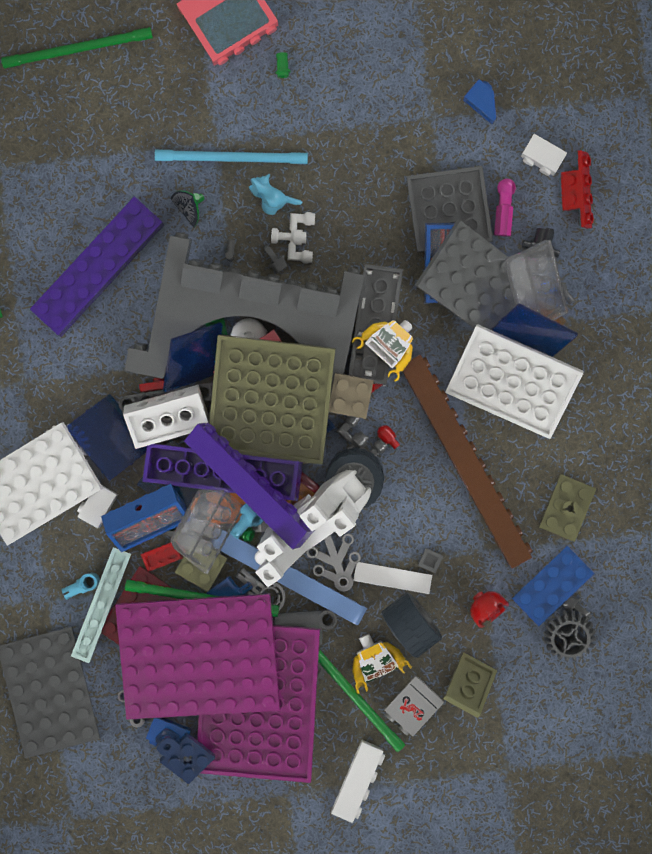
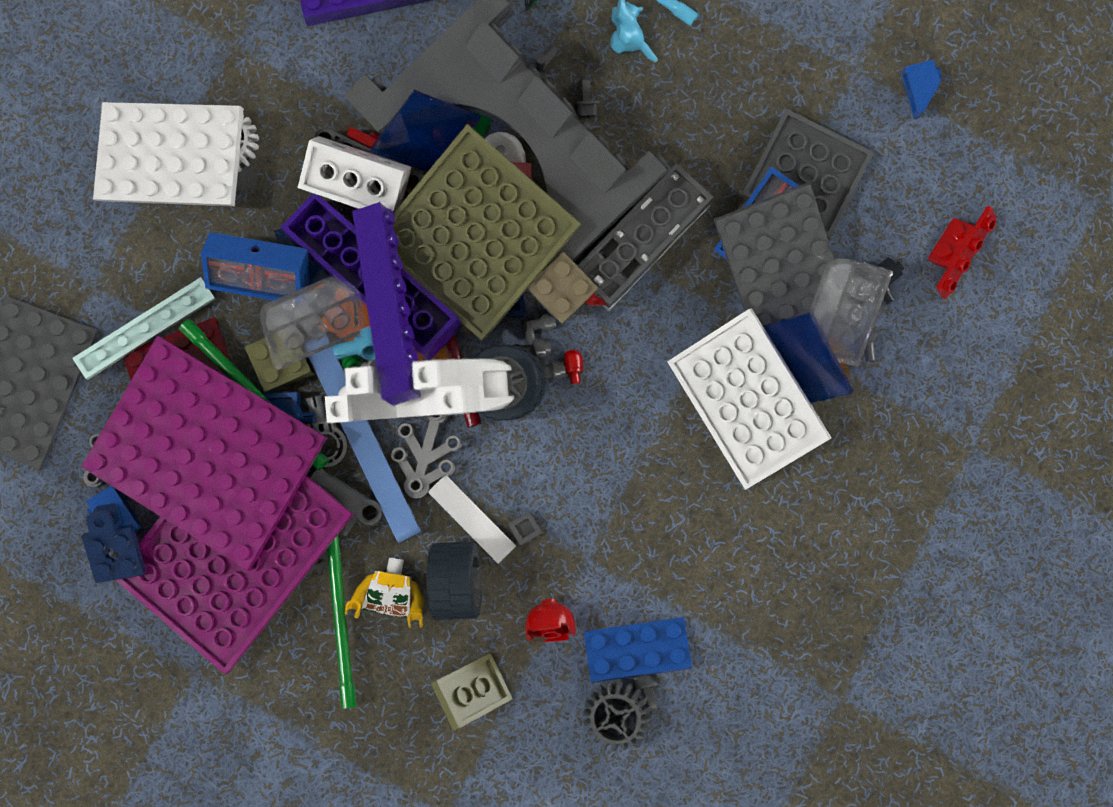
camera: 30 degrees right, 5 degrees down
(81, 586) = (138, 294): medium azure pin -> none
(96, 506) = (216, 219): white brick -> none
(106, 437) = (275, 158): clear blue piece -> none
(160, 556) = (241, 322): red plate -> none
(296, 237) = (624, 91): white piece -> none
(357, 781) = (276, 710): white brick -> none
(390, 343) = (643, 260): torso -> none
(413, 706) = (394, 671): light grey panel -> none
(466, 462) = (637, 450): reddish brown brick -> none
(504, 210) = (882, 194): dark pink piece -> none
(543, 155) = (946, 186): white brick -> none
(567, 508) = (712, 577): olive plate -> none

